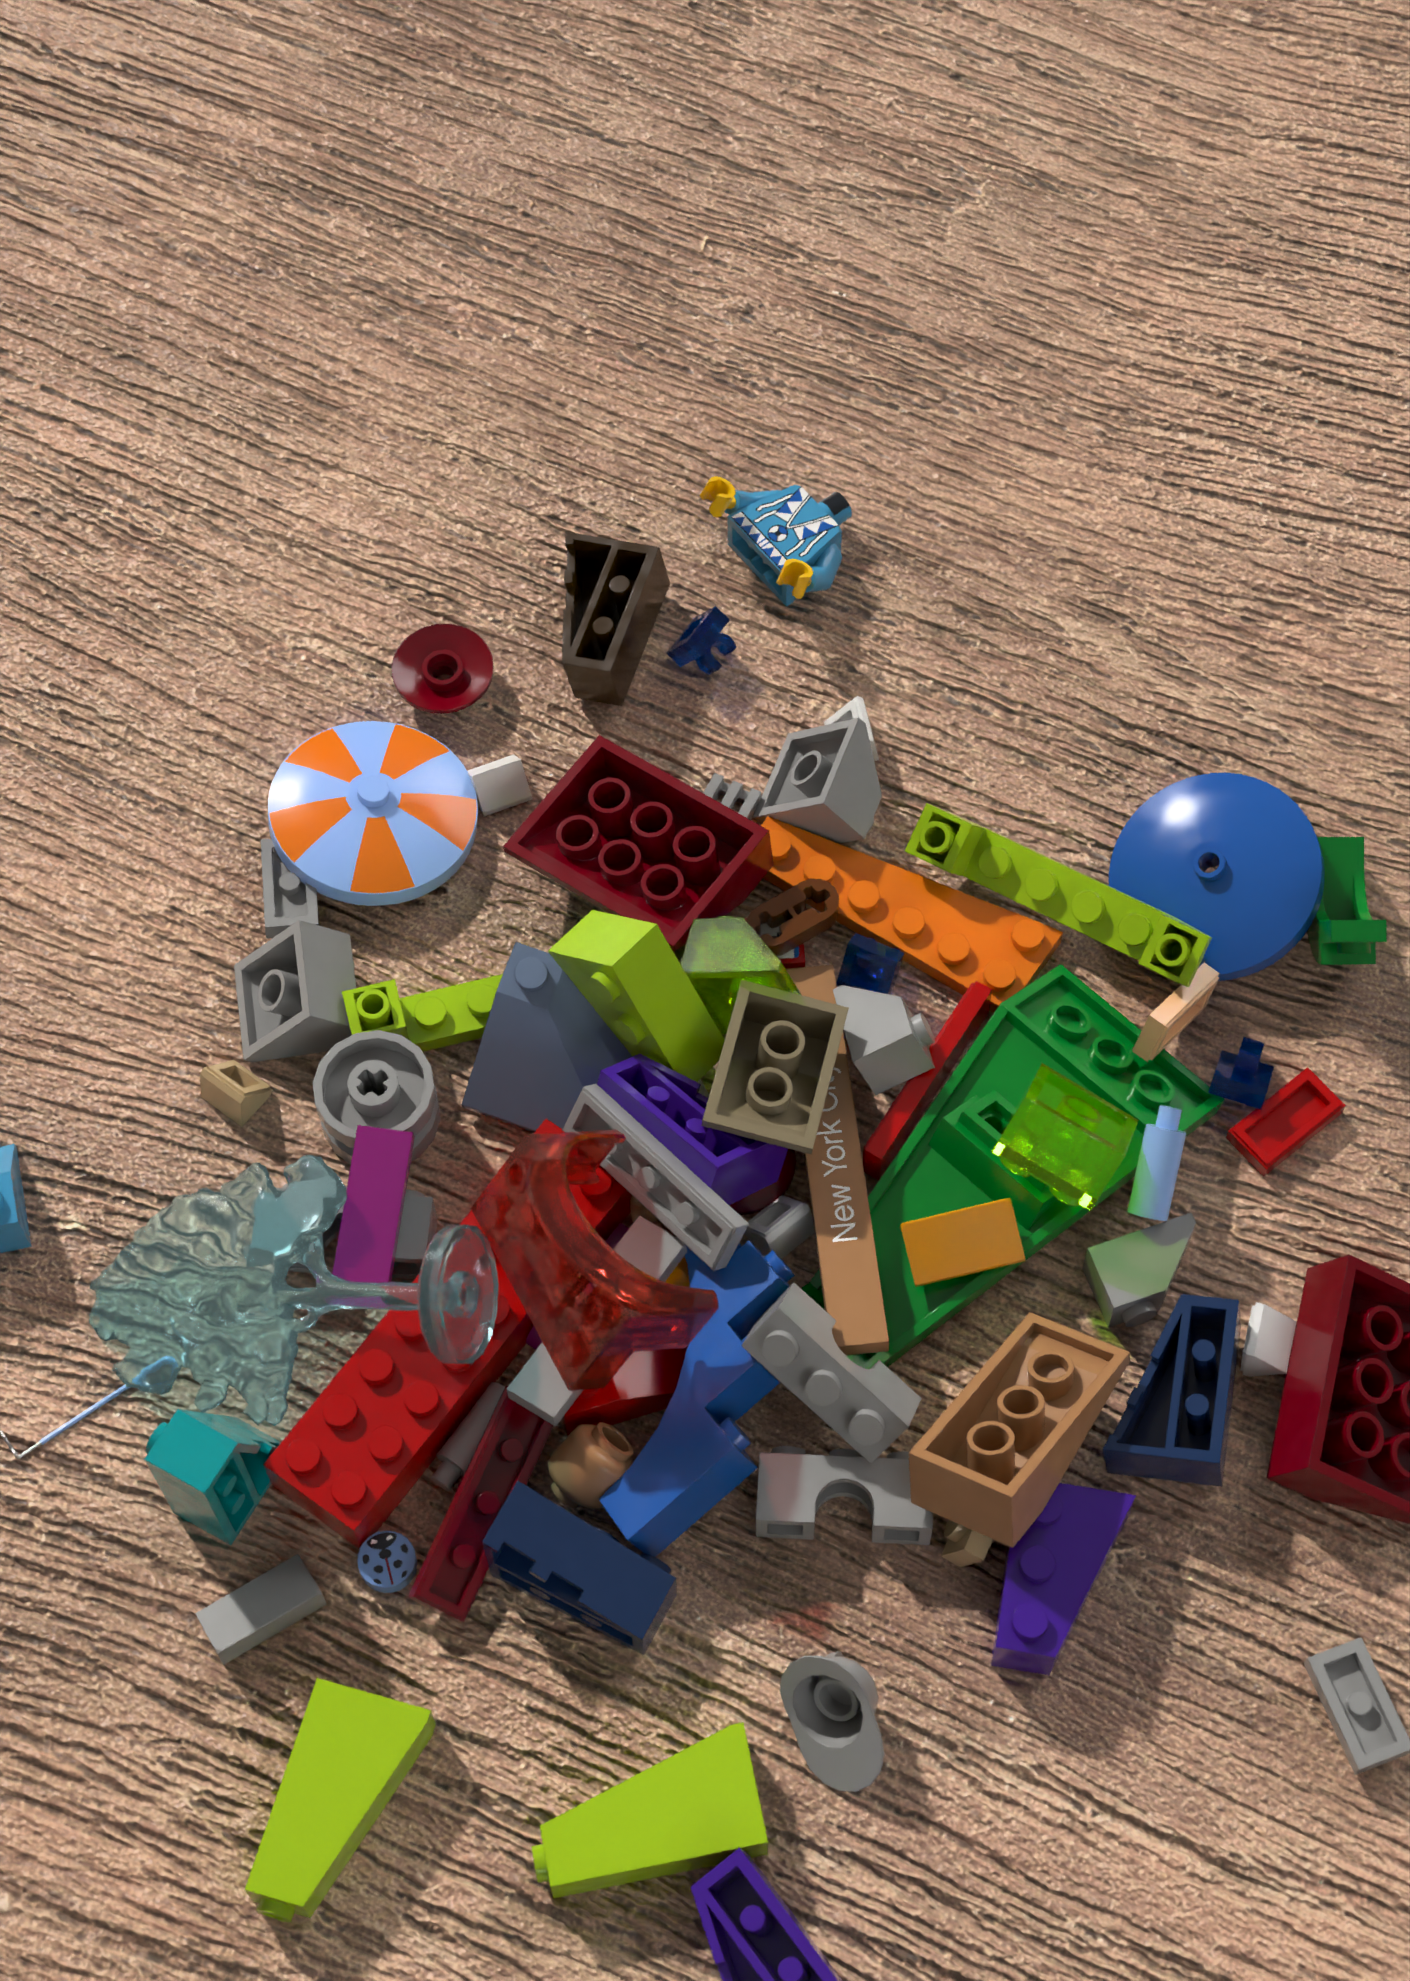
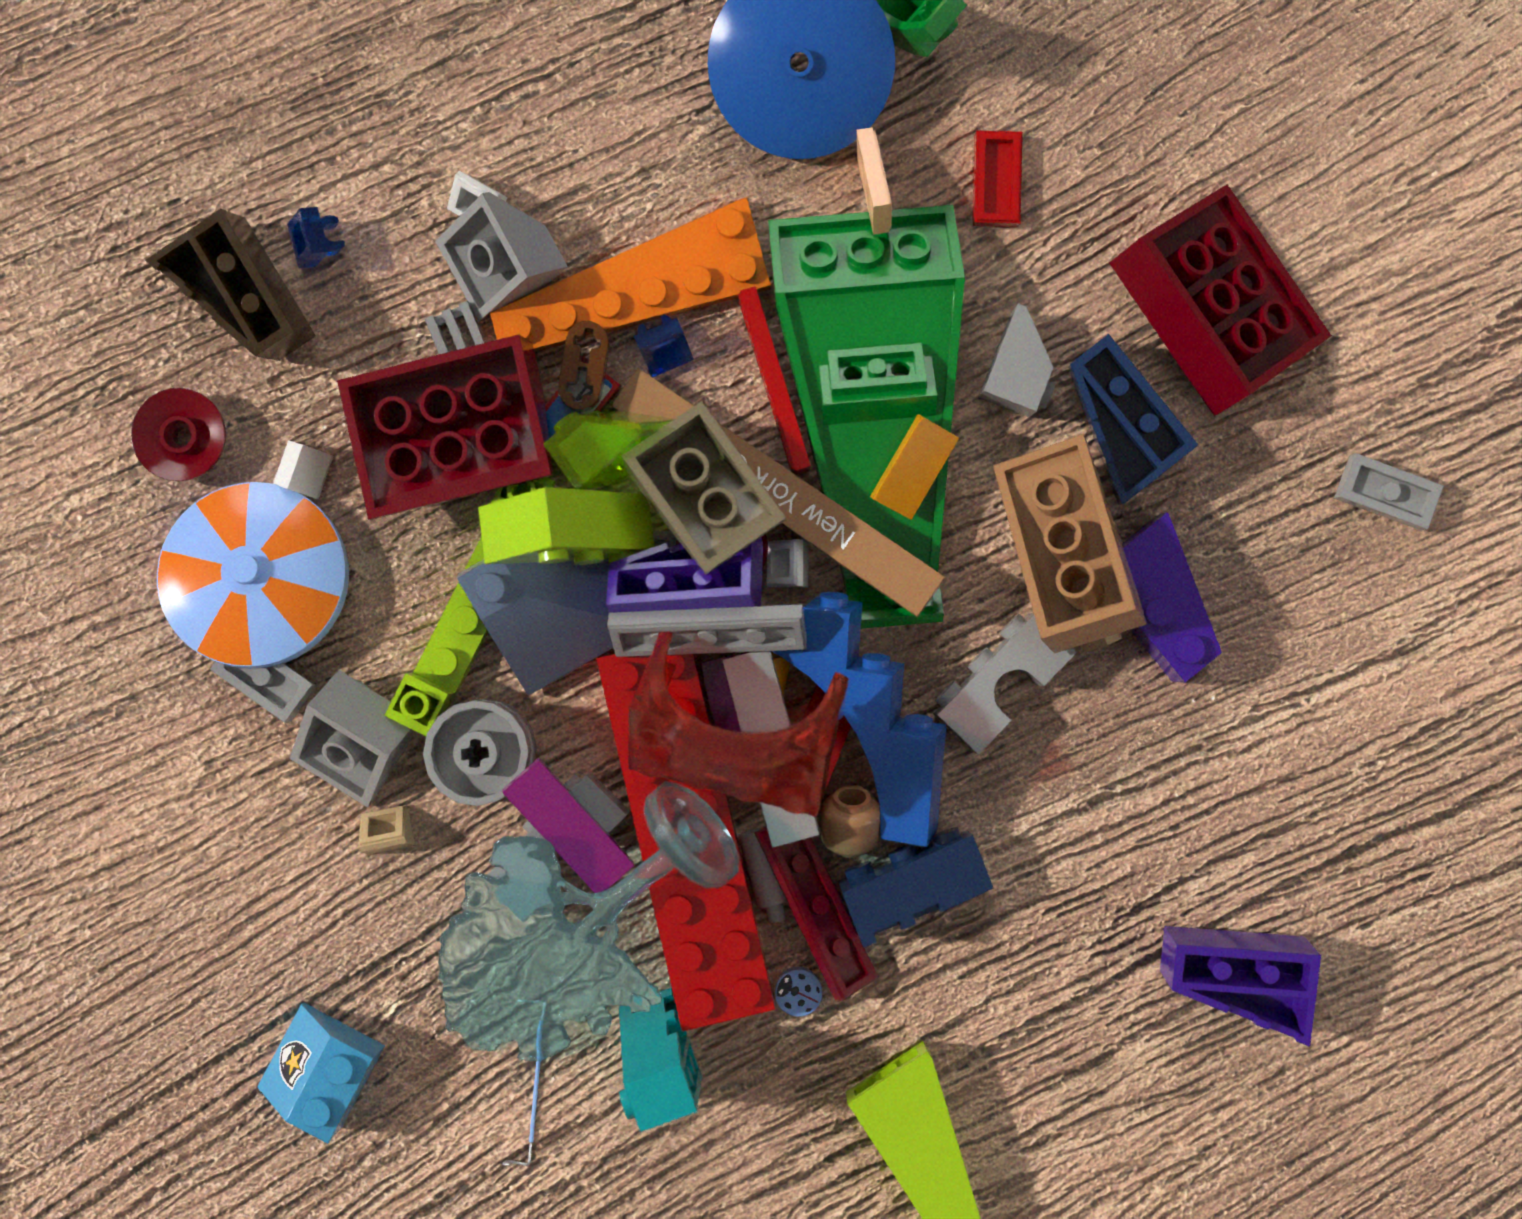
camera: 50 degrees left, 25 degrees up
(261, 1609) = (761, 1092): light grey slope -> none
(659, 1822) = (1103, 964): lime slope -> none
(783, 535) = (279, 106): torso -> none
(834, 1719) = (1132, 807): light grey piece -> none
(858, 1403) = (902, 642): light grey arch -> none
(884, 1037) = (730, 388): light grey slope -> none
(1059, 893) = (728, 171): lime slope -> none
(1065, 1138) = (915, 342): clear neon green slope -> none
(1158, 1166) = (977, 299): light blue cylinder -> none
(1242, 1075) = (948, 178): clear blue tile -> none
(1267, 1342) = (1132, 332): white slope -> none

